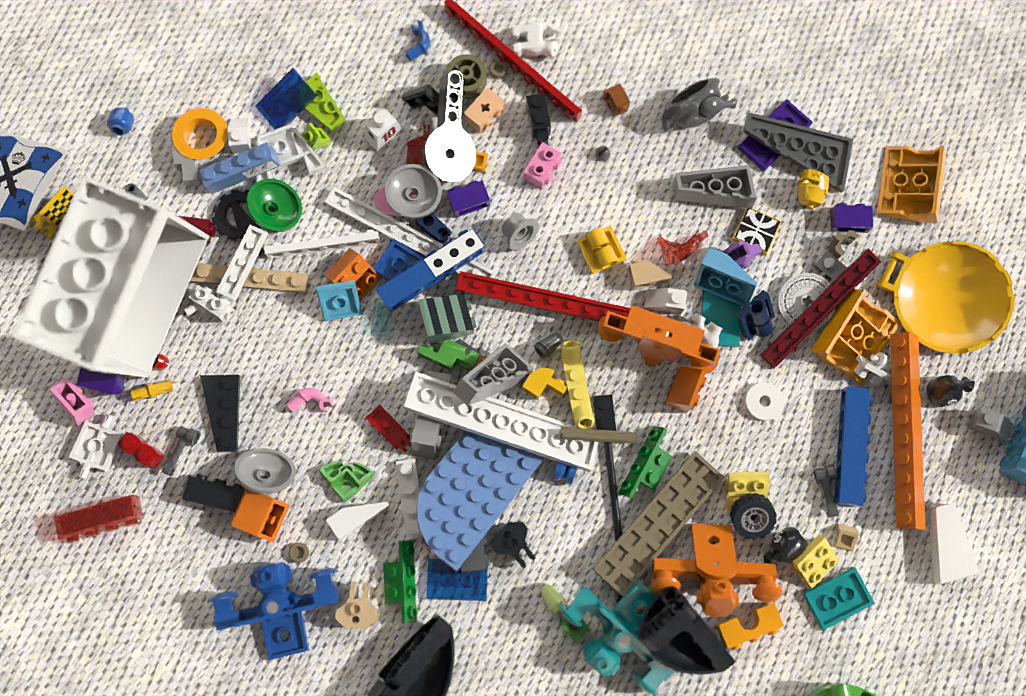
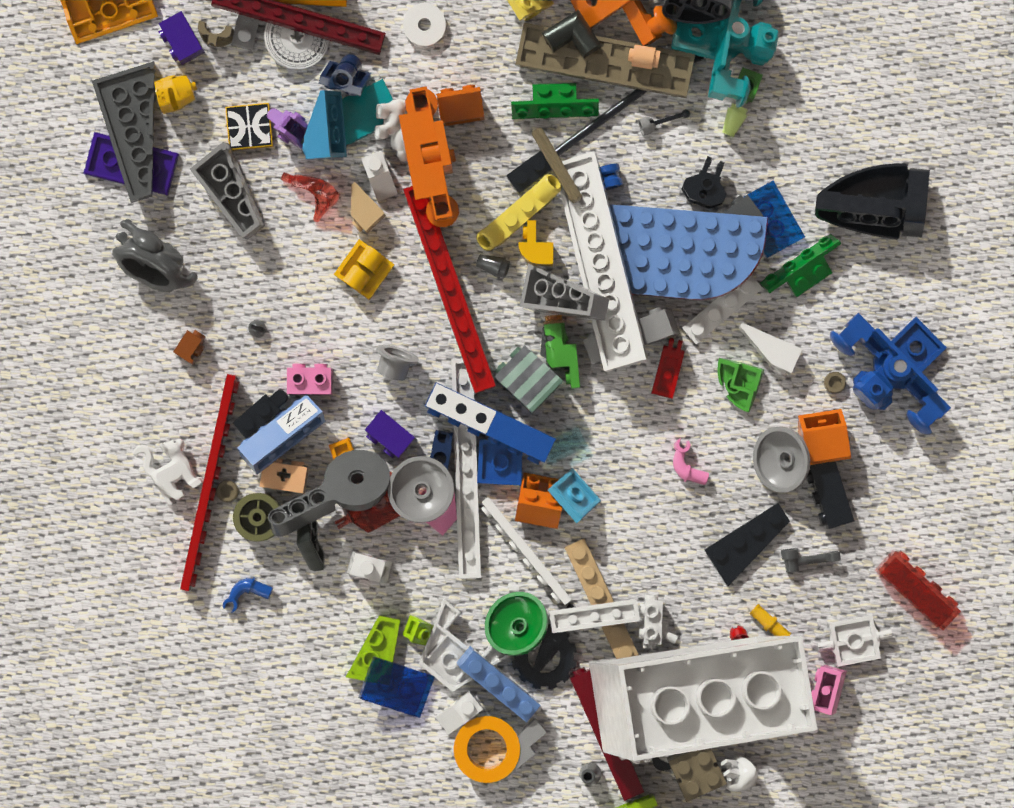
camera: 115 degrees left, 10 degrees up
(139, 448) = (832, 600): red brick -> none
(357, 607) = (852, 294): tan hinge -> none
(515, 121) = (281, 434): none -> medium blue brick
(587, 527) = (647, 124): none -> hinge
(644, 552) = (644, 57): none -> light nougat brick
(697, 512) = (573, 29): none -> pearl dark grey brick

